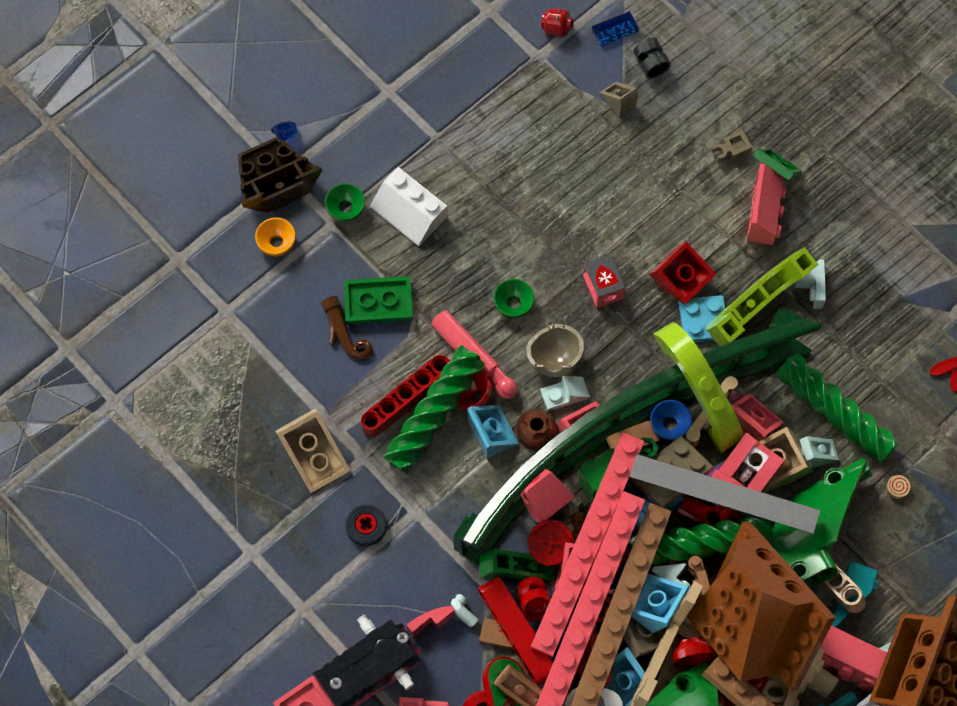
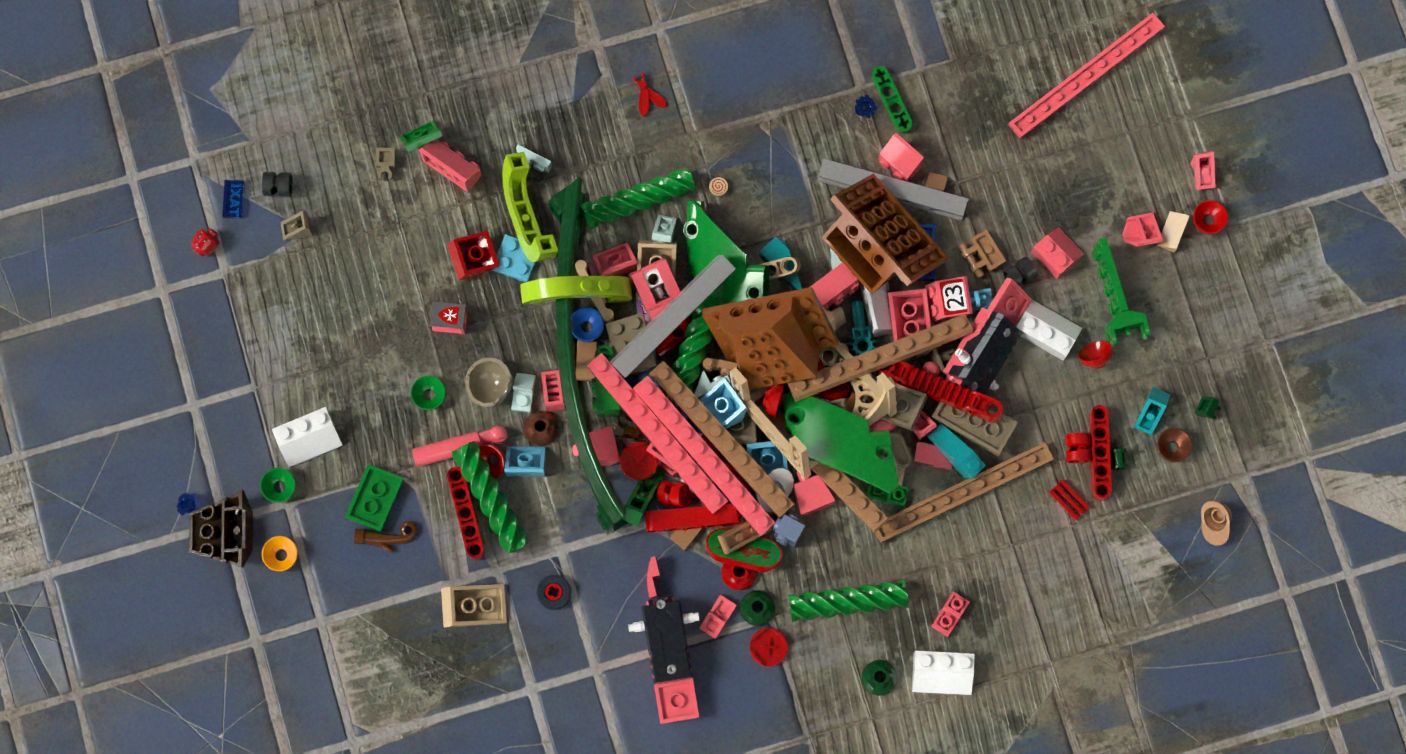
camera: 65 degrees left, 10 degrees up
(464, 614) = (657, 552): light aqua arm -> none

